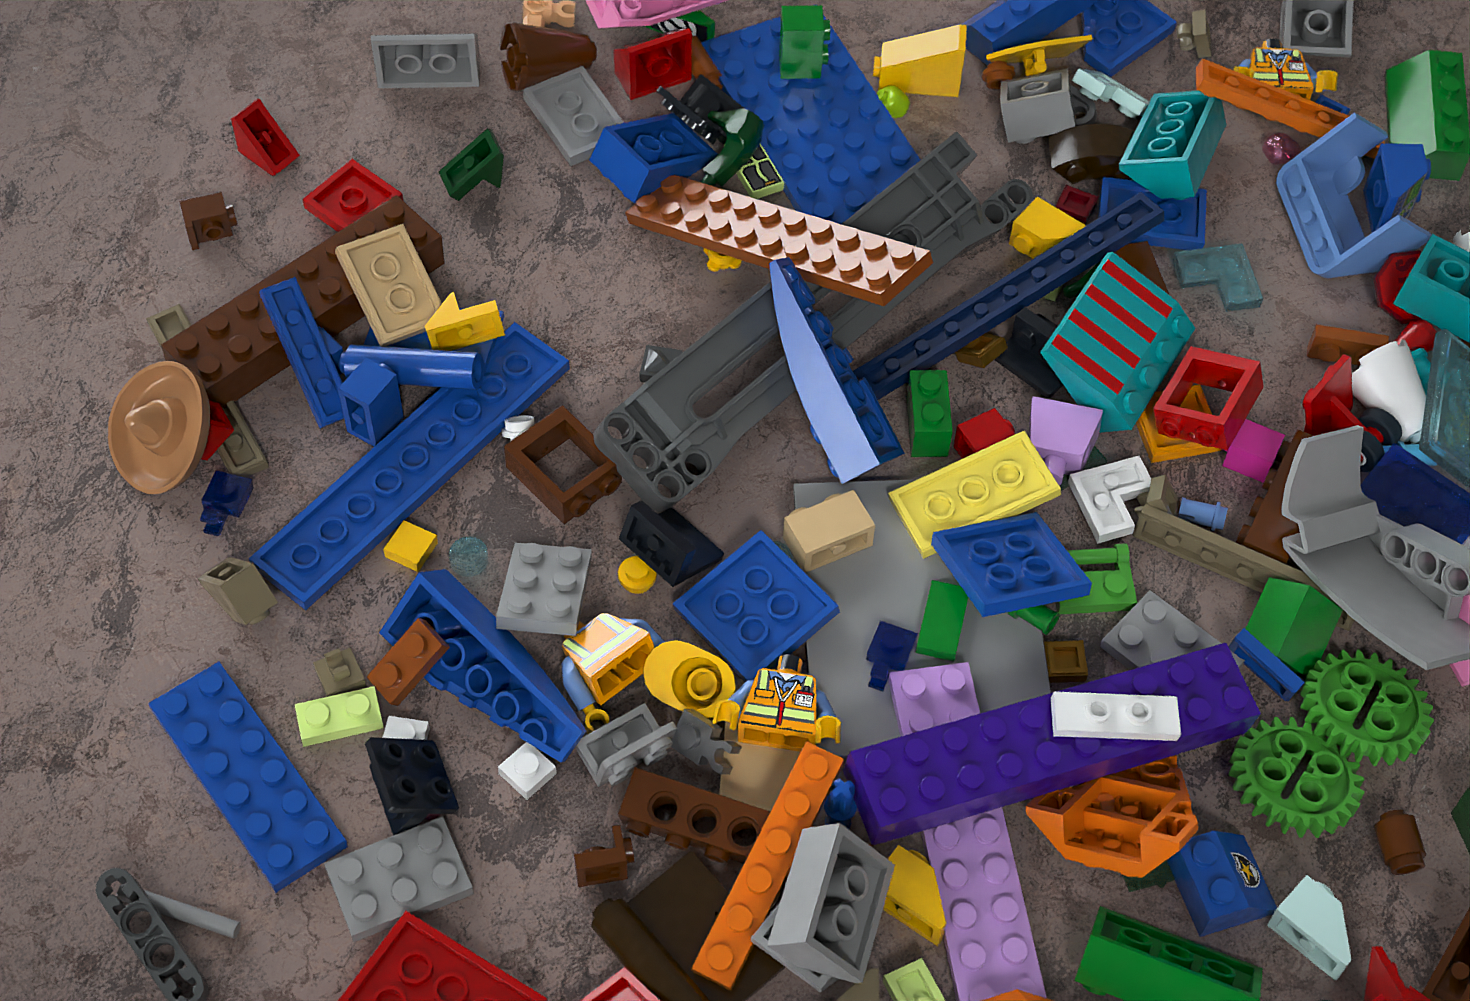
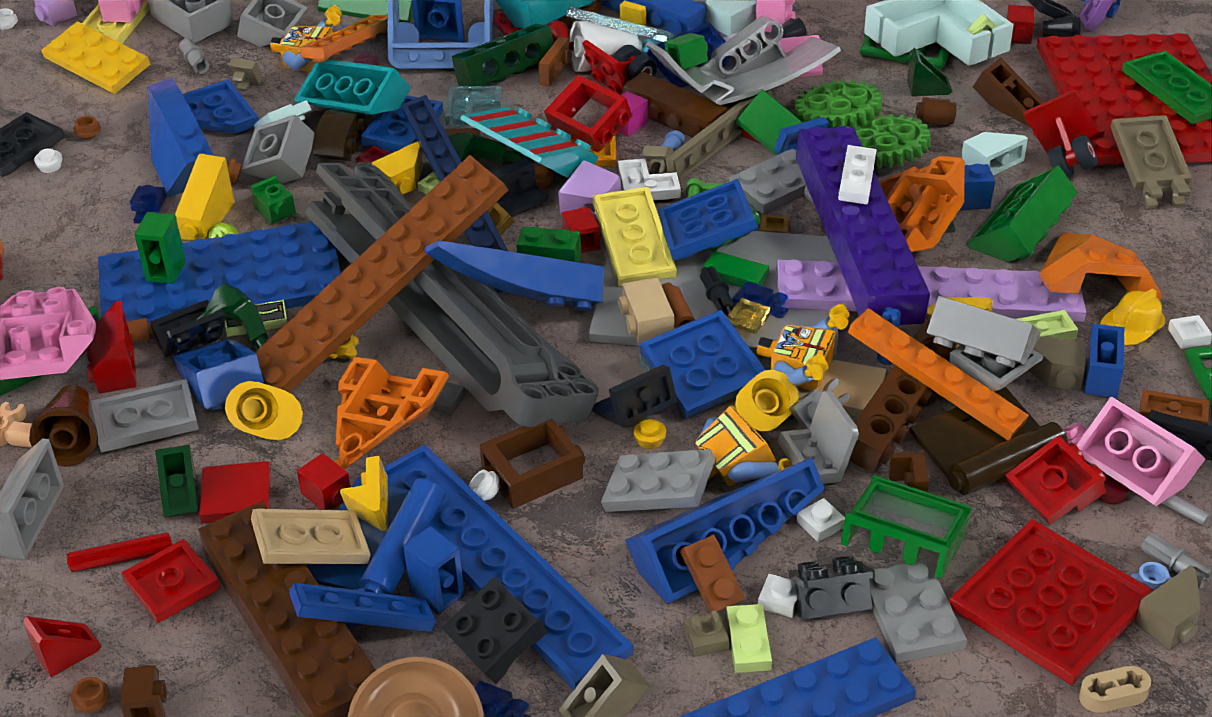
camera: 75 degrees left, 15 degrees down
(210, 181) = (90, 695): none -> dark orange plate
(304, 473) = (494, 629): none -> black brick
(388, 153) = (118, 552): none -> red axle
(410, 546) = (584, 574): yellow tile -> none
(468, 556) = (603, 538): clear light blue tile -> none
(485, 220) = (233, 488): none -> red tile
(500, 282) = (322, 481): none -> red brick
(511, 856) = (909, 516): none -> green window
(591, 206) = (263, 410): none -> yellow piece
(615, 310) = (380, 406): none -> orange wedge
(848, 563) = (678, 304): none -> dark orange cylinder
(848, 643) = (749, 315): none -> clear yellow plate
(889, 602) = (716, 290): none -> black axle
(926, 16) = (147, 199): none -> clear blue plate
(958, 117) = (272, 200): none -> green brick
(1039, 52) = (229, 136): yellow shield -> none
(1318, 268) = (492, 53): none -> dark green brick
(1391, 486) = (687, 50): none -> green brick

